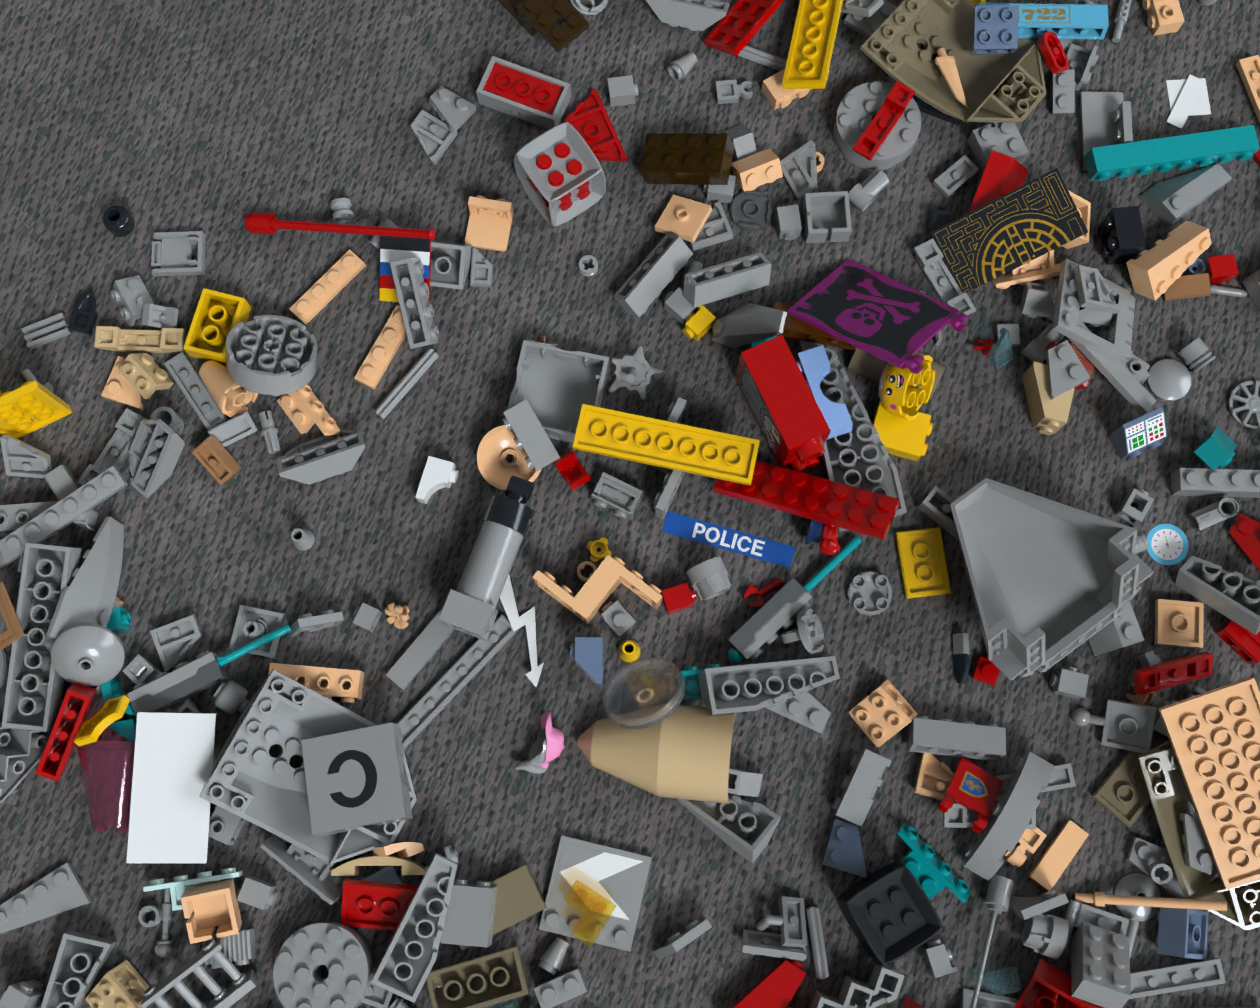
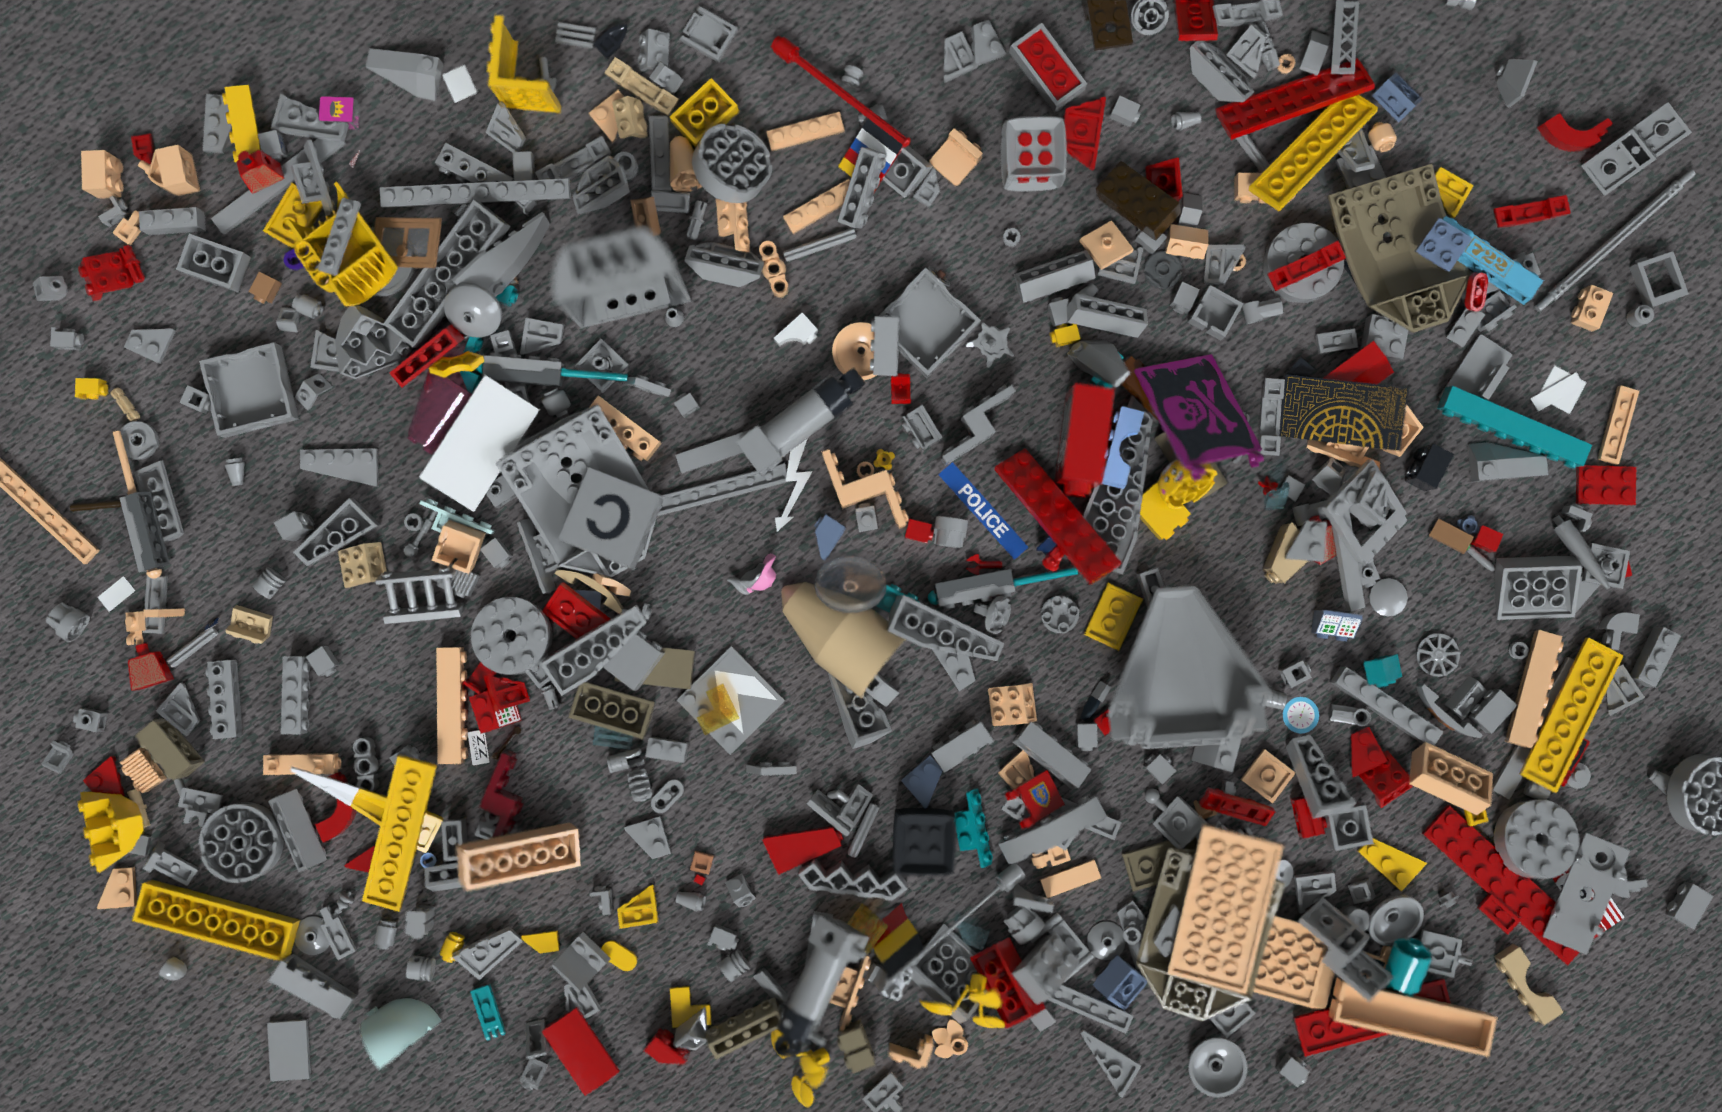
camera: 30 degrees right, 10 degrees up
(211, 521) = (614, 270): none -> light grey slope
(368, 425) = (773, 259): none -> light nougat piece
(397, 615) = (709, 416): light nougat plant -> none
(553, 957) = (675, 725): light grey cone -> none
(629, 657) = (855, 551): yellow cone -> none
(666, 444) = (979, 415): yellow plate -> none
(698, 120) = (1167, 177): none -> red slope
(729, 92) = (1208, 163): light grey plate -> none
(938, 958) = (939, 893): light grey brick -> none
(950, 73) = (1387, 255): light nougat bar -> none
(977, 697) = (1086, 736): none -> light grey brick
(1101, 899) = (1078, 925): light nougat bar -> none
(1168, 259) = (1451, 507): light nougat wedge -> none
(1196, 355) = (1420, 592): light grey piece -> none

